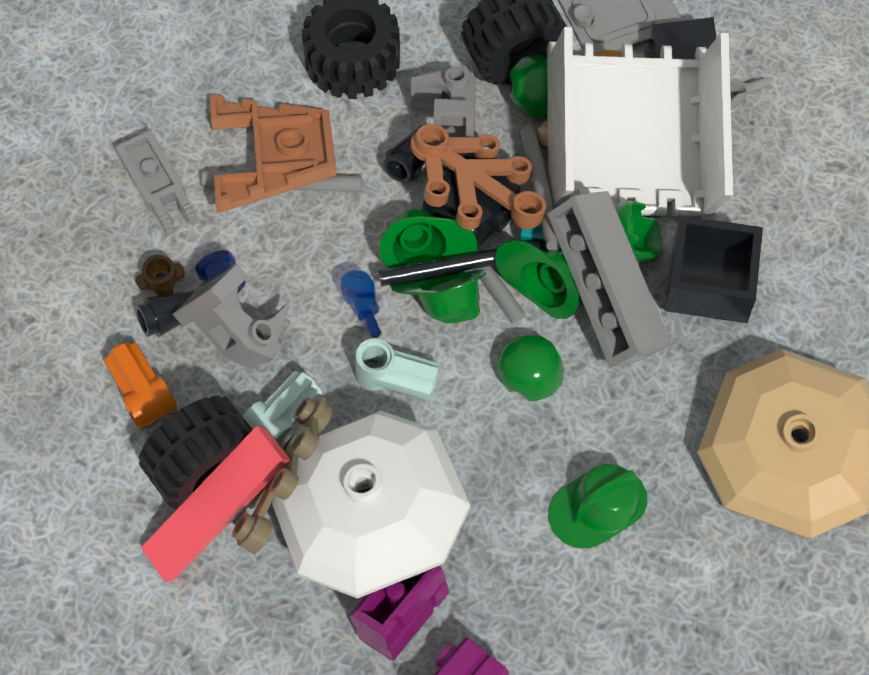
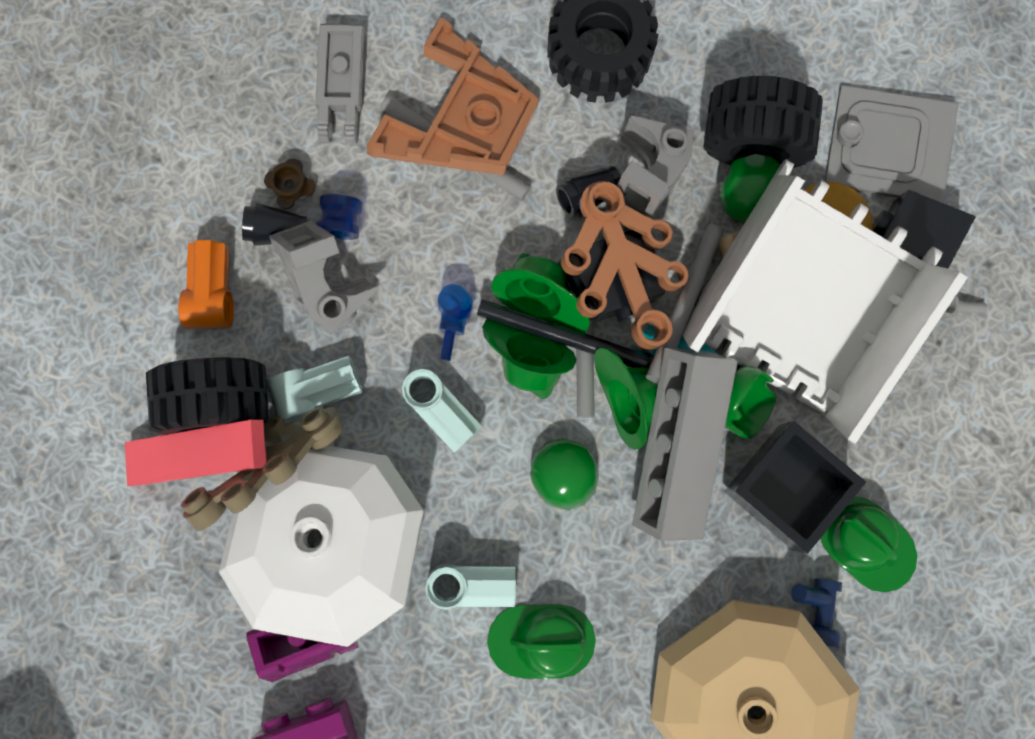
camera: 30 degrees right, 20 degrees up
(514, 487) = (478, 586): none -> light aqua piece
(792, 338) = (824, 598): none -> dark blue piece
(802, 287) = (871, 546): none -> green piece

